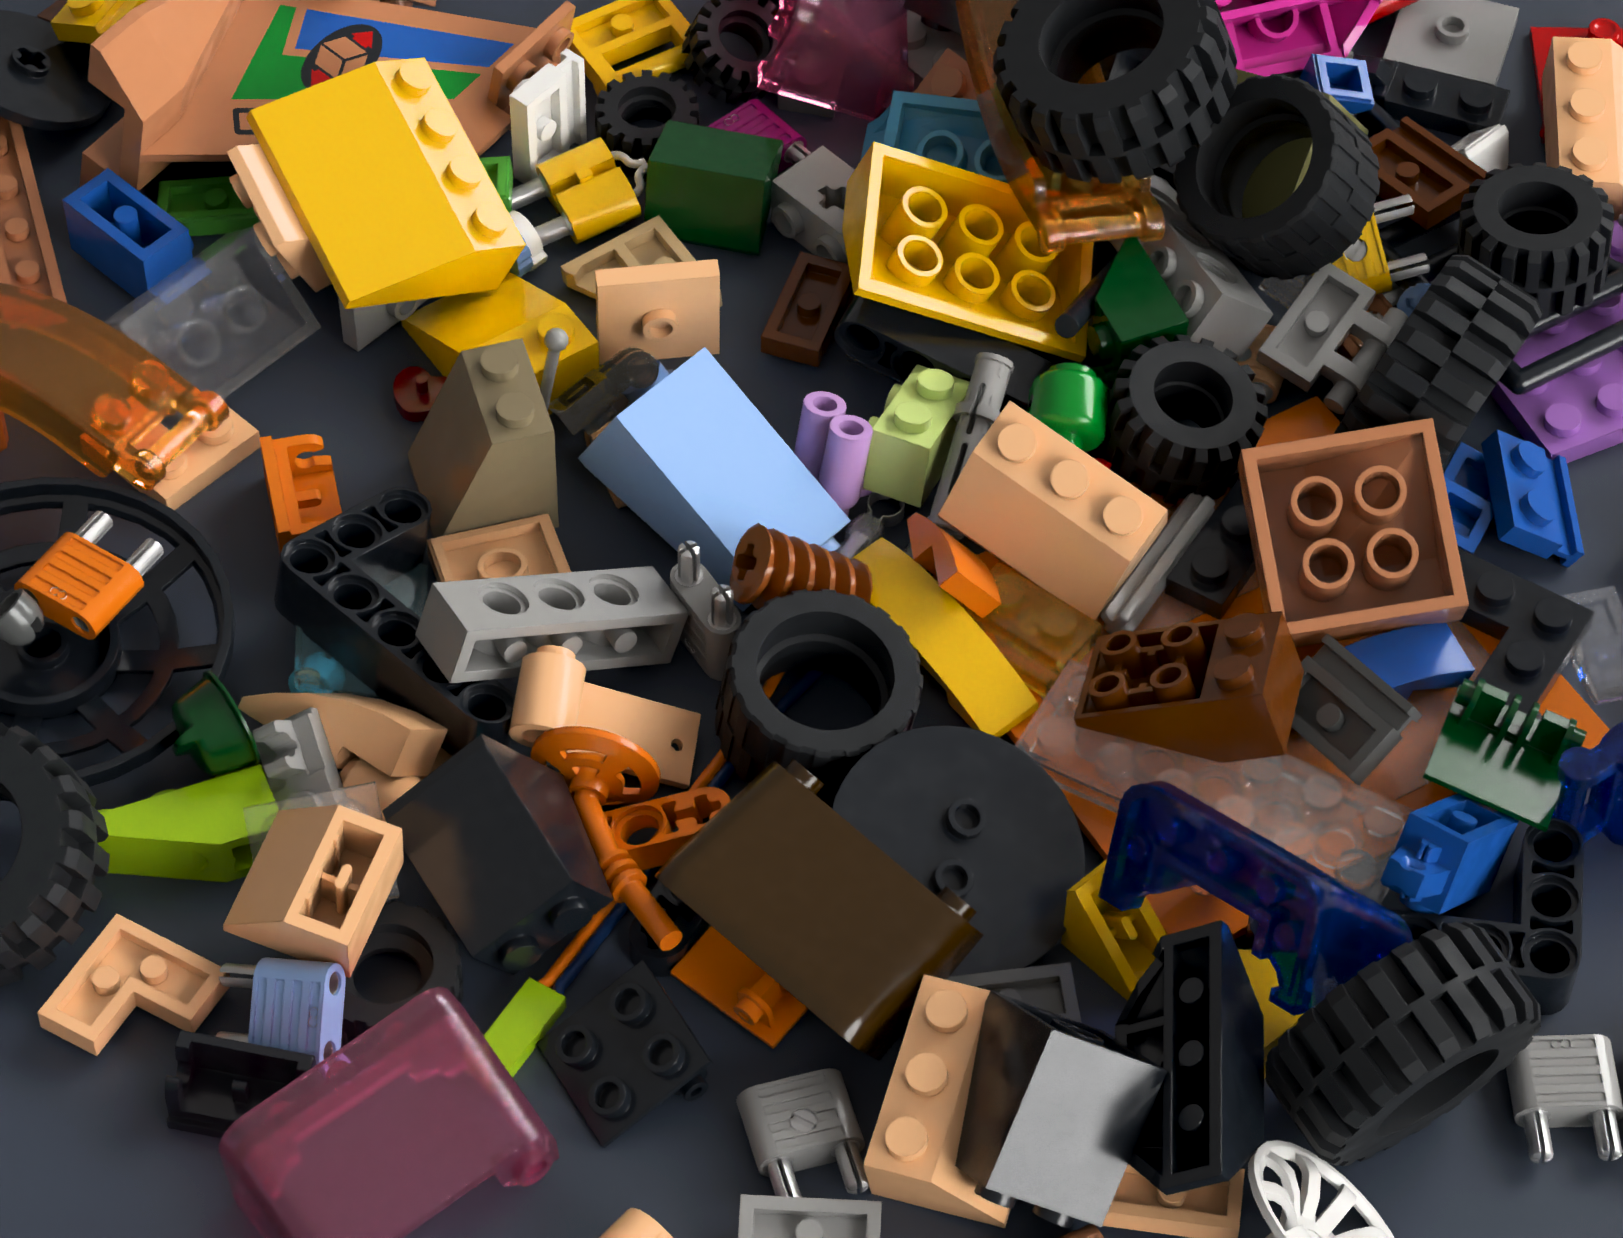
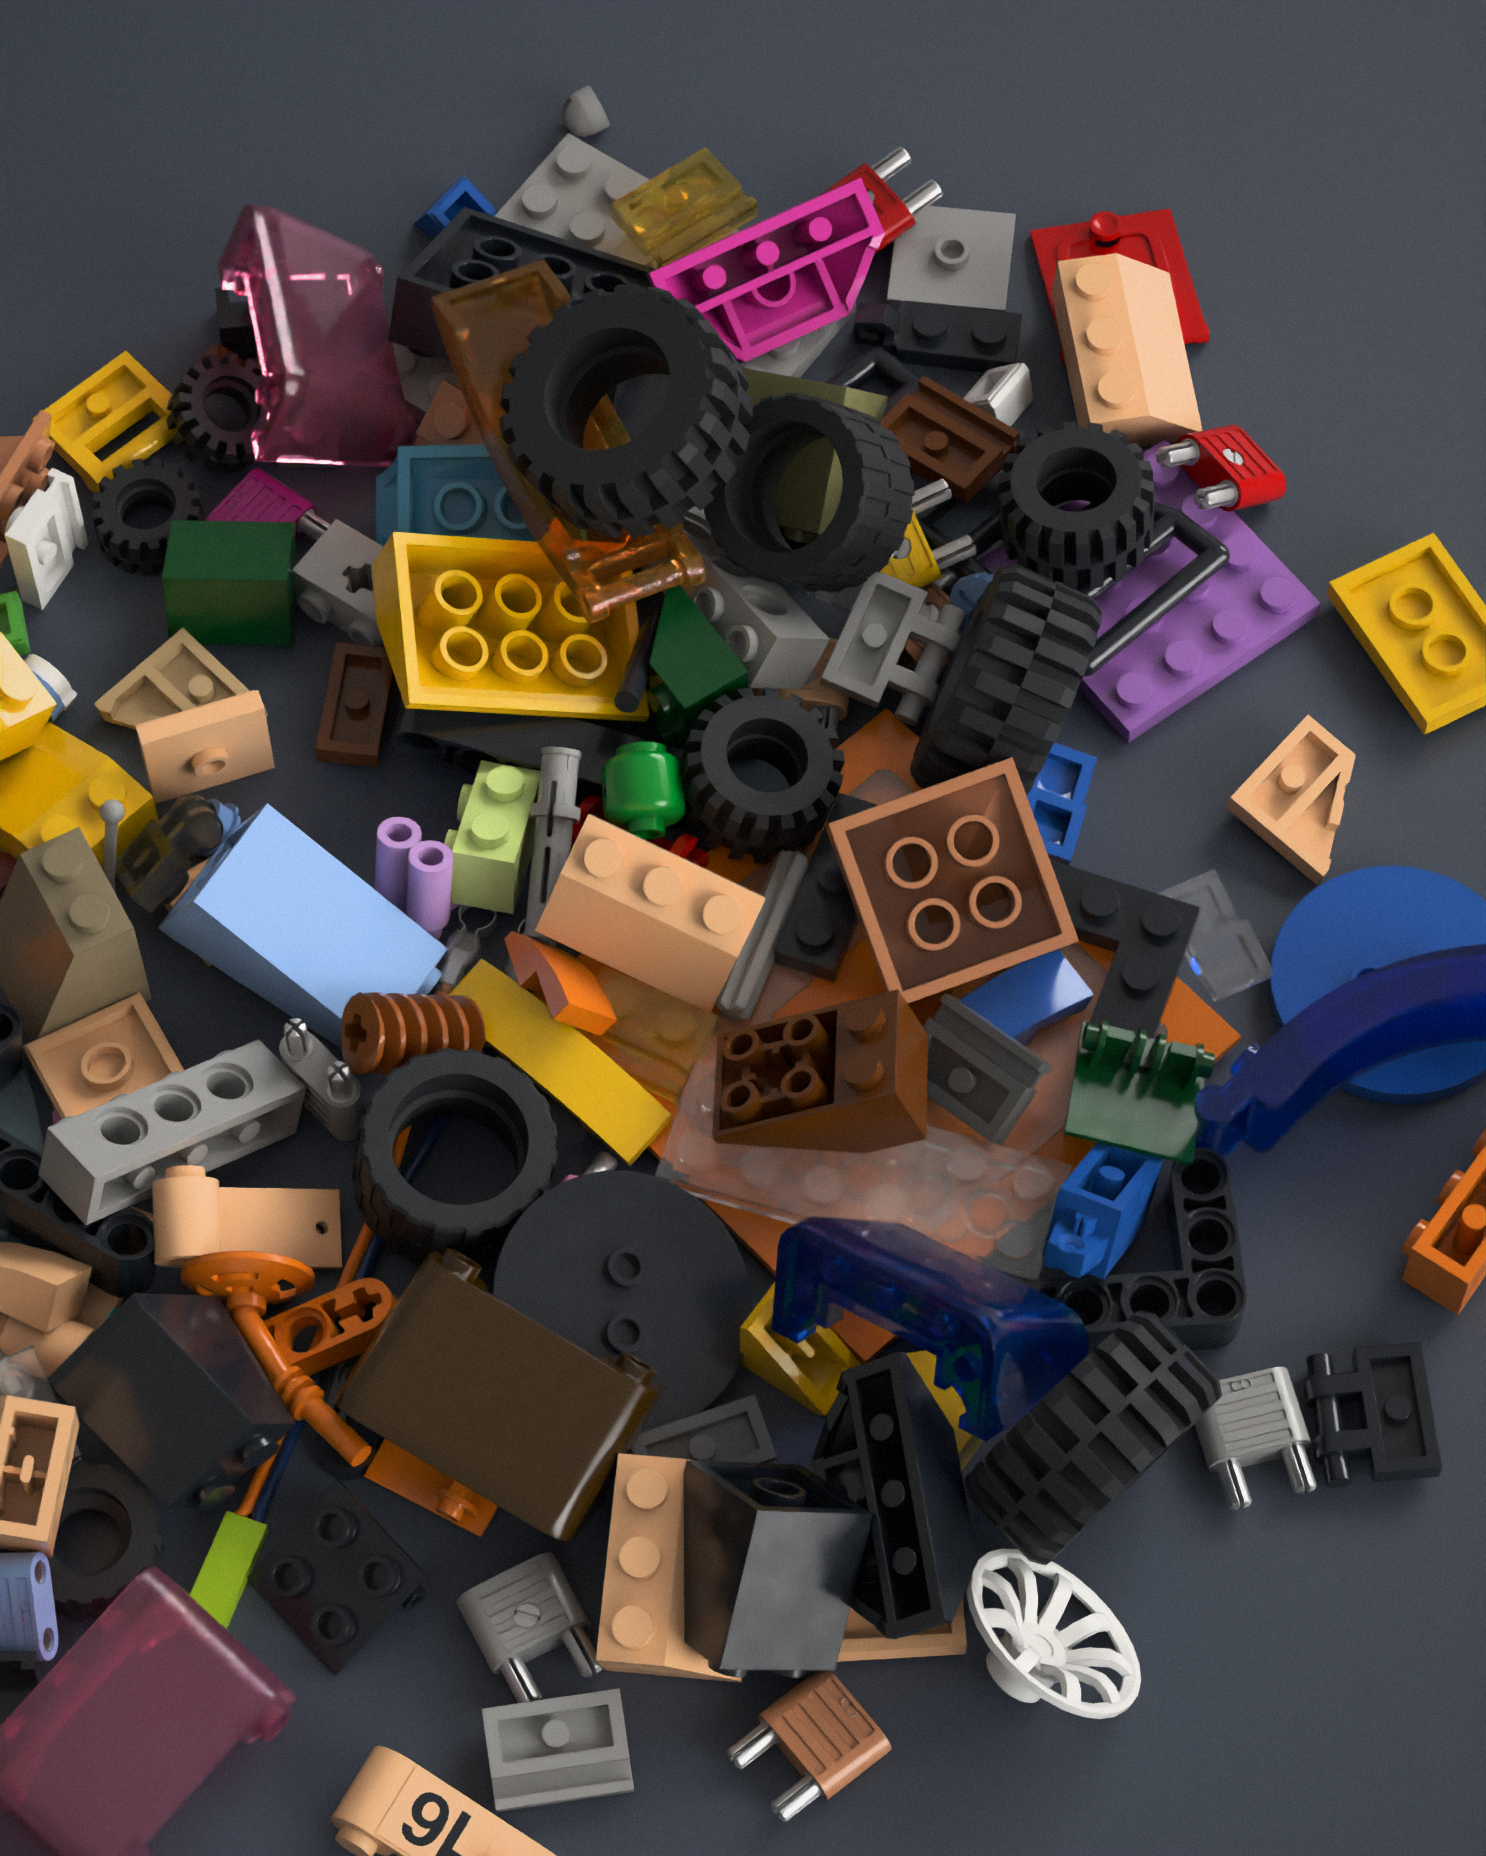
camera: 10 degrees left, 10 degrees up
(585, 191) = (100, 610): yellow piece -> none
(1343, 79) = (845, 349): blue slope -> none
(1532, 498) = (1118, 787): blue plate -> none

